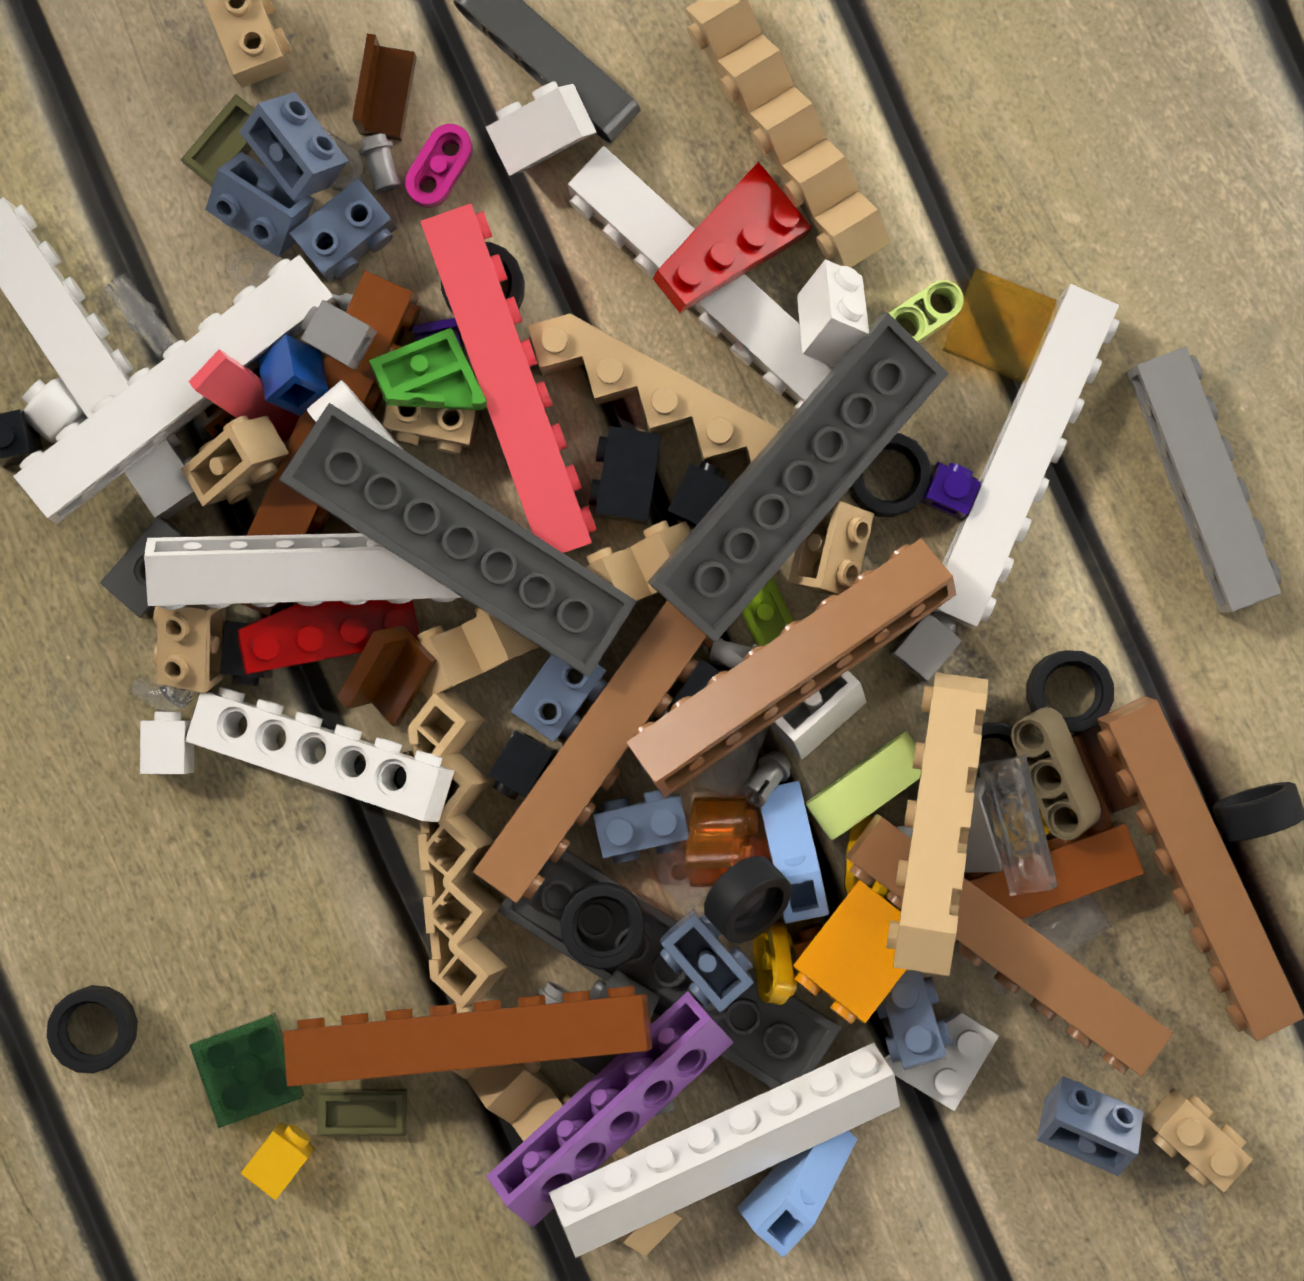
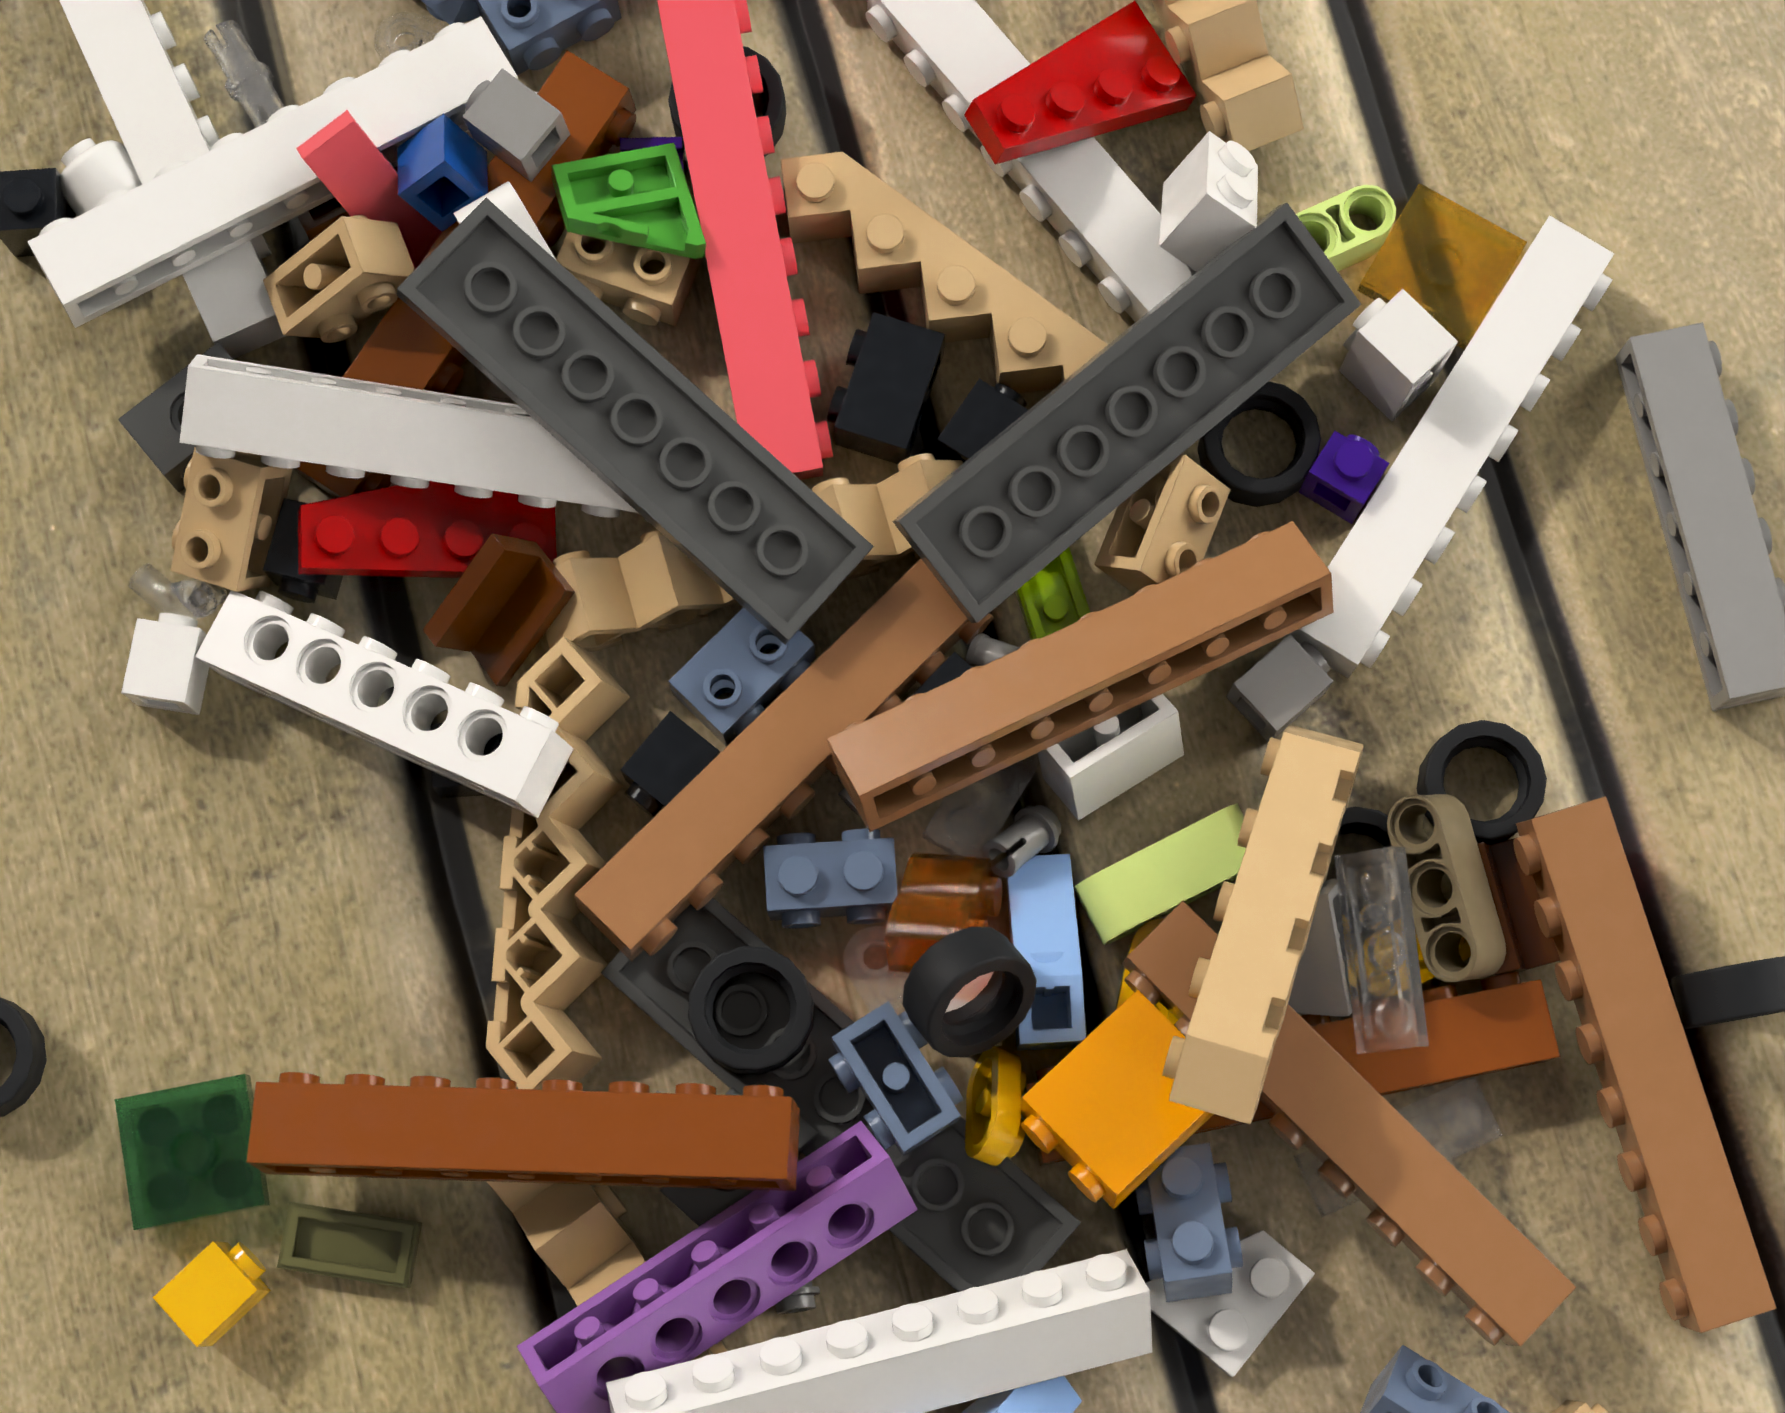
camera: 10 degrees right, 10 degrees down
(976, 401) = (1395, 353): none -> white brick

